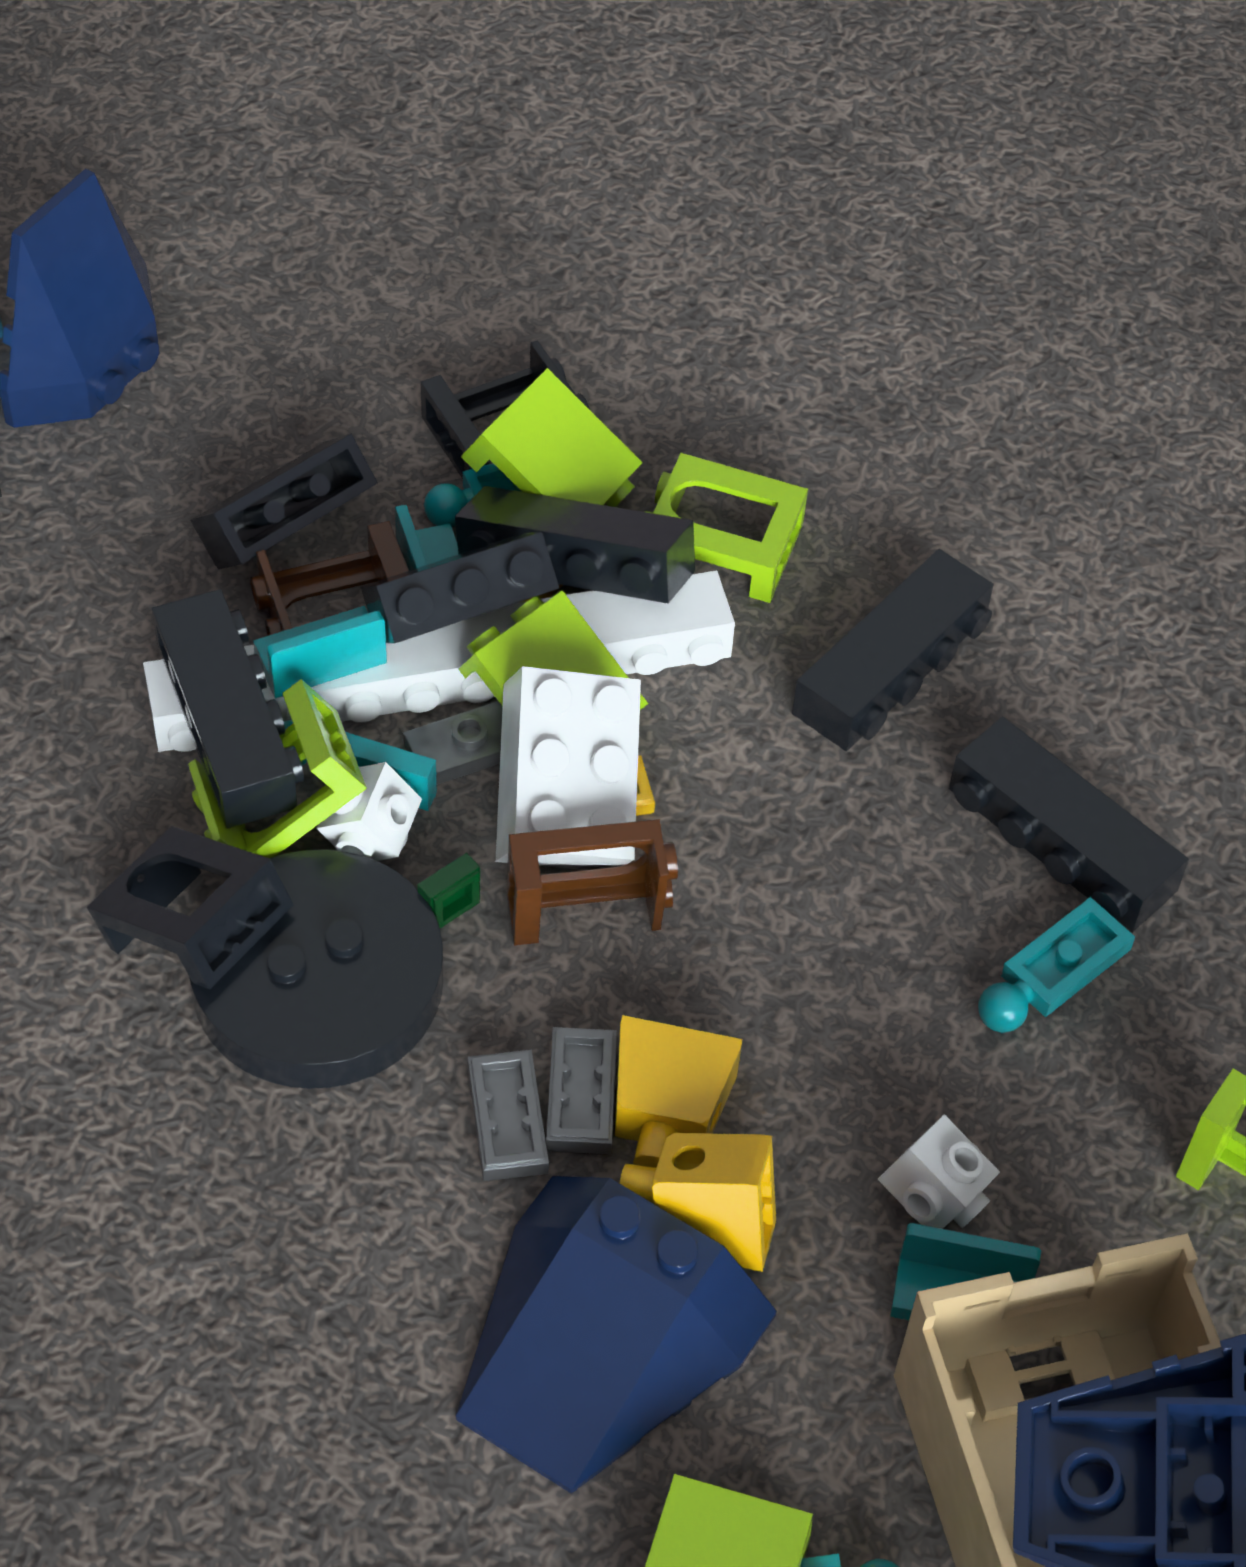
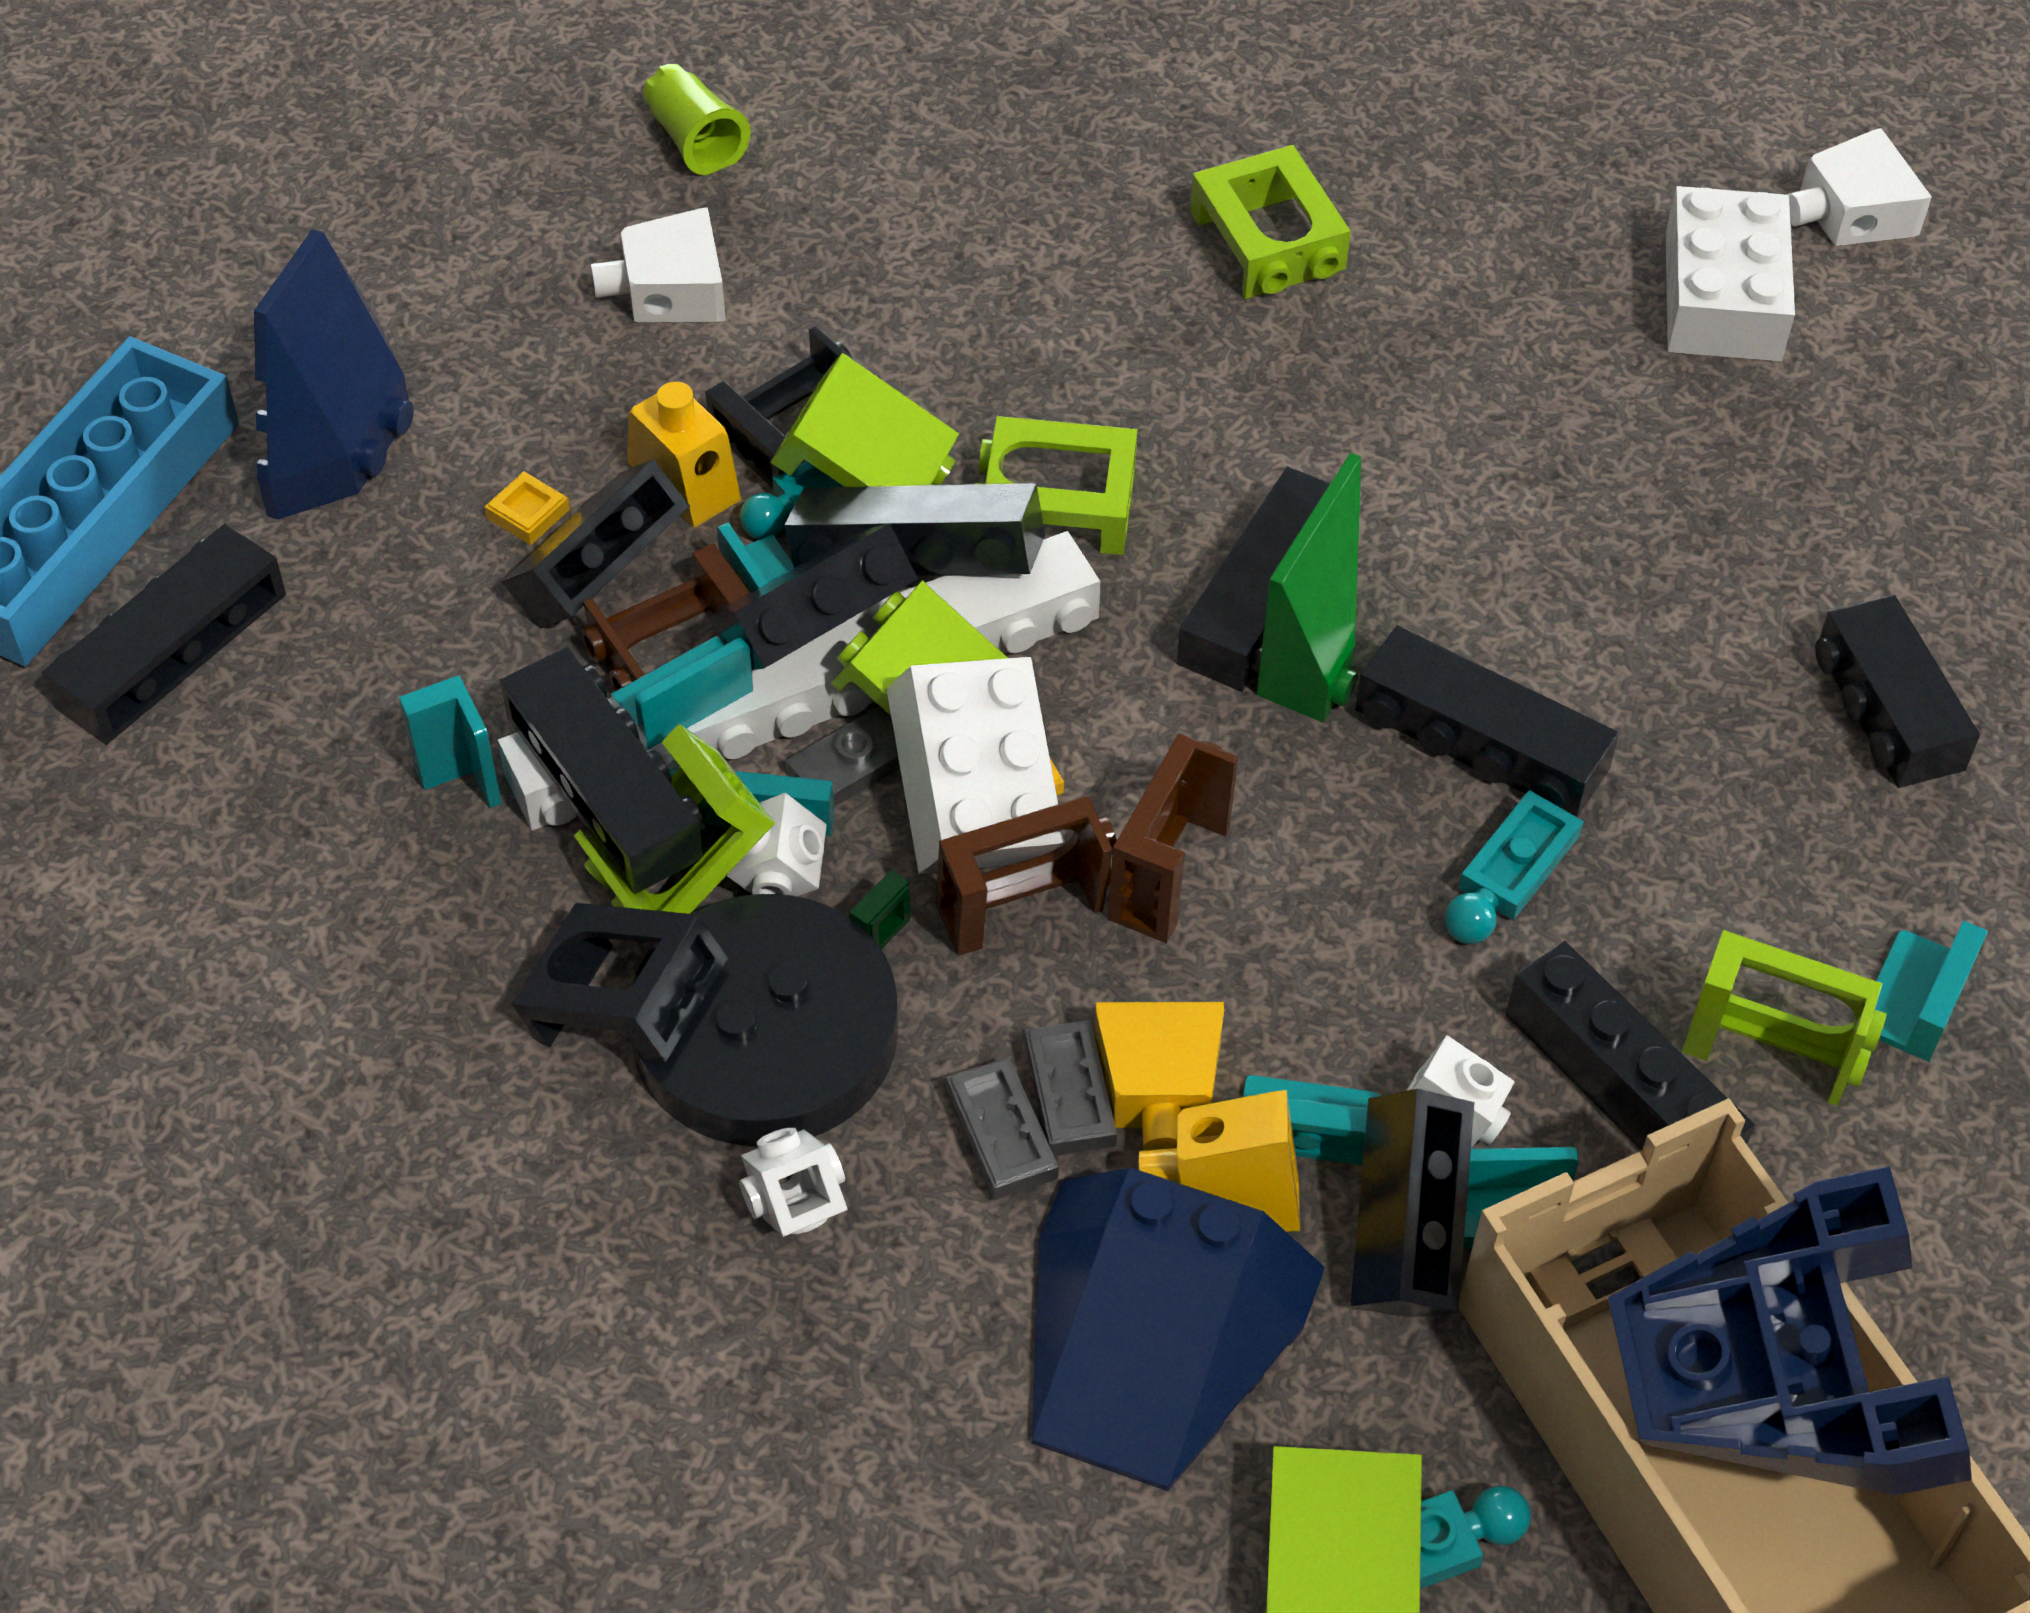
camera: 10 degrees left, 0 degrees up
(97, 650) = (449, 737): none -> teal panel
(236, 458) = (527, 508): none -> yellow tile
(301, 1146) = (809, 1194): none -> white brick
(386, 418) = (681, 440): none -> yellow torso
(420, 266) = (667, 270): none -> white torso
(487, 141) = (698, 122): none -> lime plant
(702, 902) = (1146, 870): none -> reddish brown panel
(813, 1169) = (1324, 1118): none -> teal panel
(868, 1269) = (1412, 1204): none -> black brick
(924, 681) = (1314, 606): none -> green slope
(987, 282) = (1269, 266): none -> lime panel
(1105, 1160) = (1608, 1046): none -> black brick

